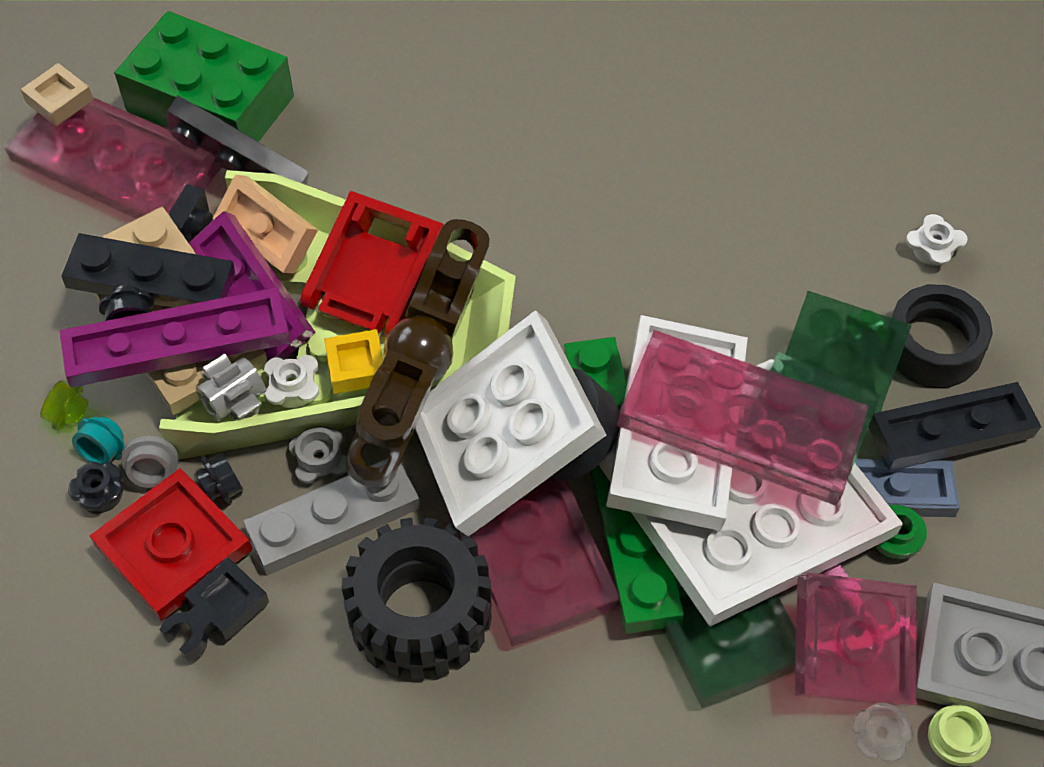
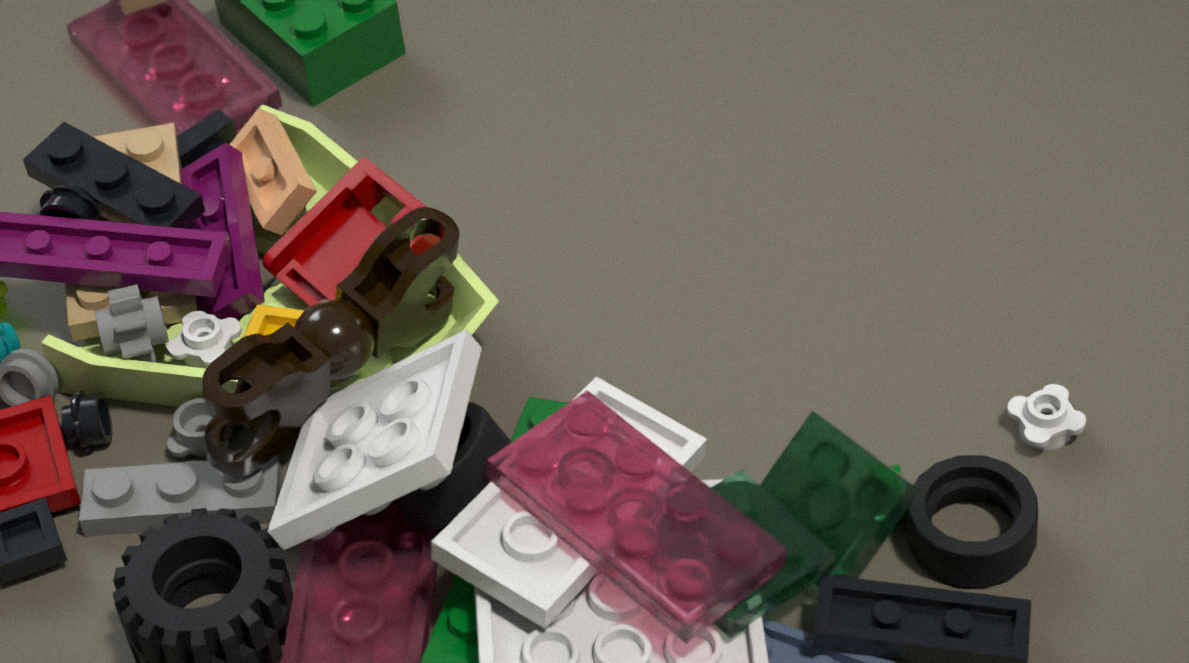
camera: 30 degrees right, 10 degrees down
(231, 147) = (284, 84): black plate -> none

